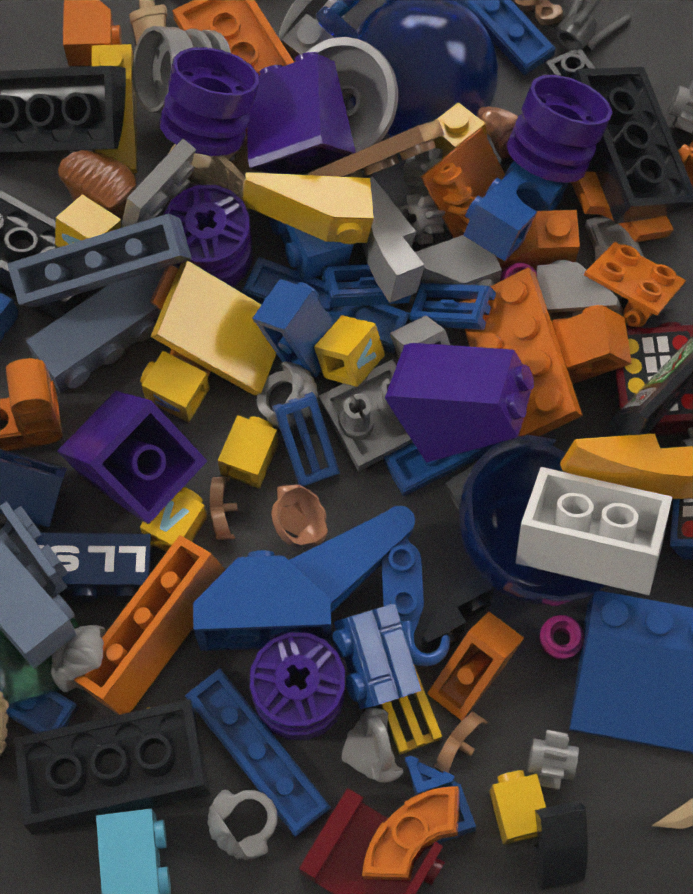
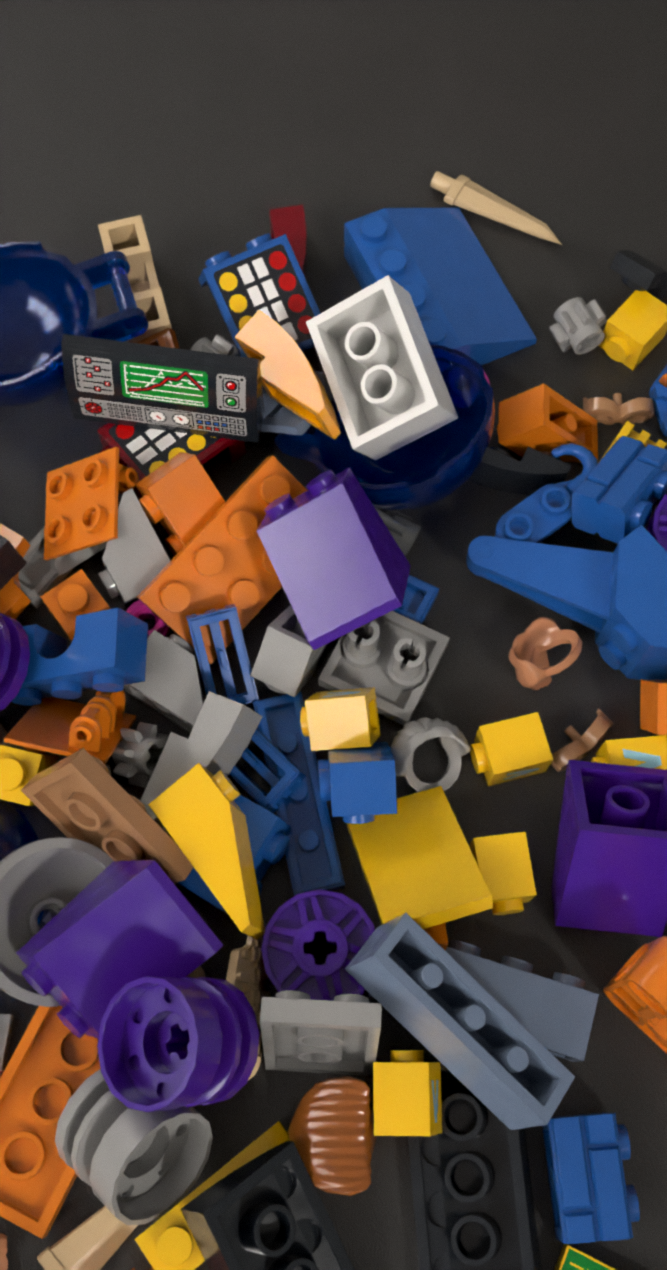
camera: 125 degrees left, 0 degrees up
(294, 407) = (450, 716): blue tile -> none

